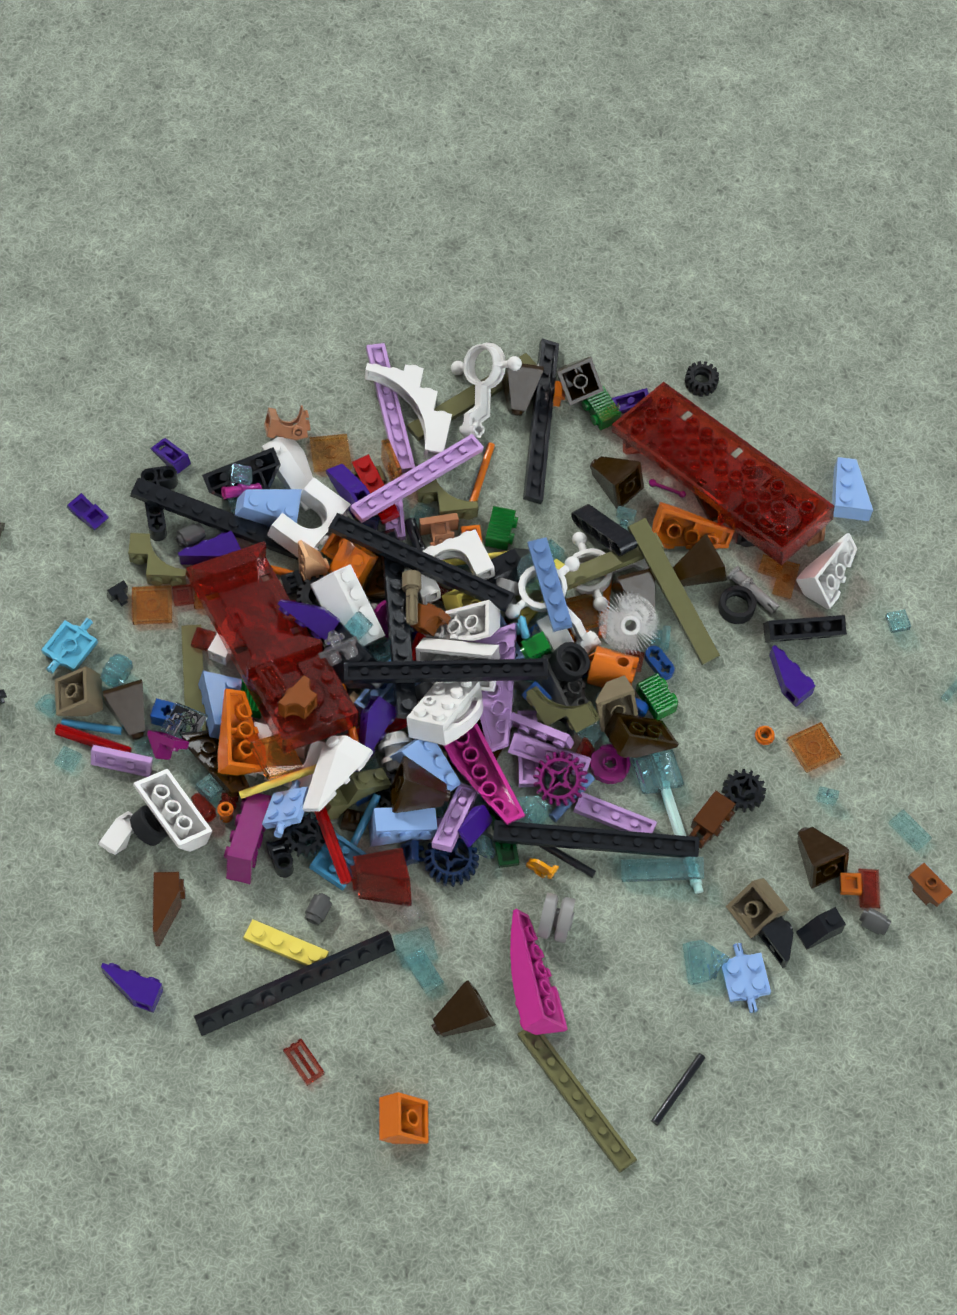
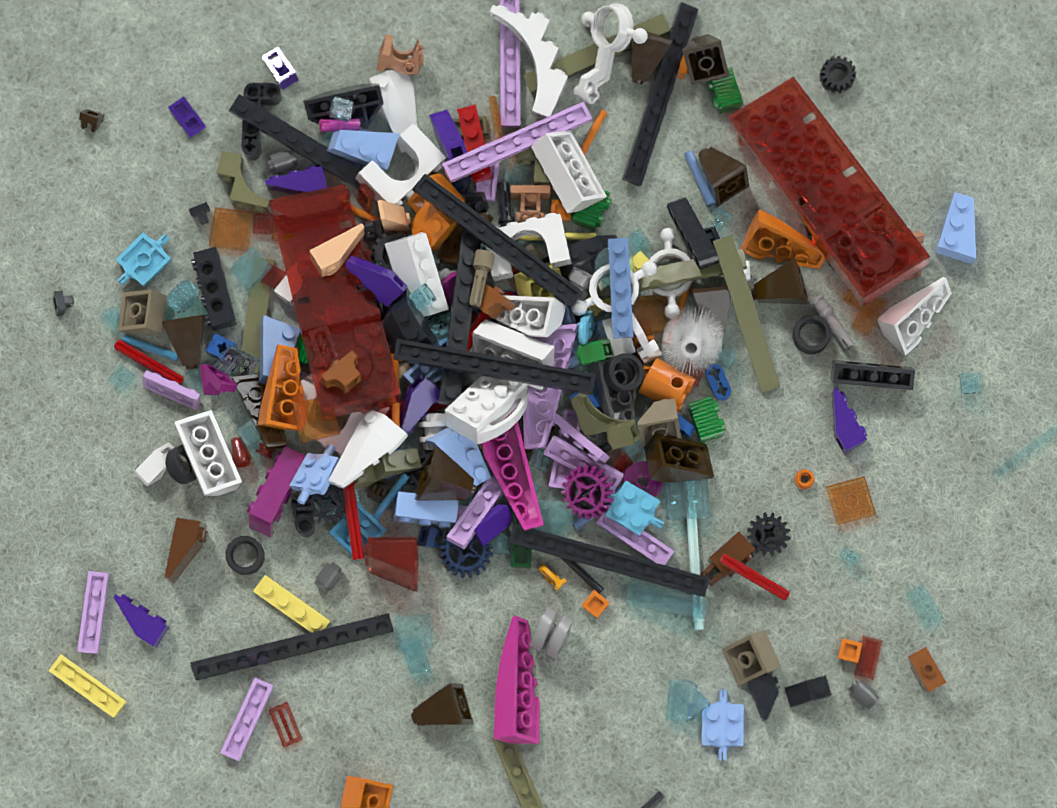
camera: 20 degrees right, 15 degrees up
(81, 988) = (93, 612): none -> lavender plate
(89, 1062) = (87, 686): none -> light yellow plate
(137, 633) = (225, 317): none -> black brick
(179, 635) = (250, 268): none -> clear light blue piece
(225, 811) = (259, 457): orange pin -> none
(232, 918) = (245, 540): none -> black tyre
(261, 600) = (333, 253): none -> light nougat slope
(263, 1063) = (247, 719): none -> lavender plate
(277, 781) = (312, 444): light yellow bar -> none
(280, 551) = (365, 197): none -> clear red tile
(330, 452) = (439, 92): clear orange tile -> none
(332, 653) = (394, 319): clear hips -> none
(471, 495) = (568, 171): none -> white slope
(505, 760) = (539, 460): none -> clear light blue tile
(591, 886) = (595, 604): none -> orange plate
(596, 487) = (699, 178): none -> medium blue piece
(608, 788) = (634, 509): none -> medium azure plate
(629, 400) = (757, 86): dark purple slope -> none
(652, 482) = (759, 182): magenta hinge -> none
(741, 830) = (754, 577): none -> red axle
(821, 856) = (827, 617): dark brown slope -> none

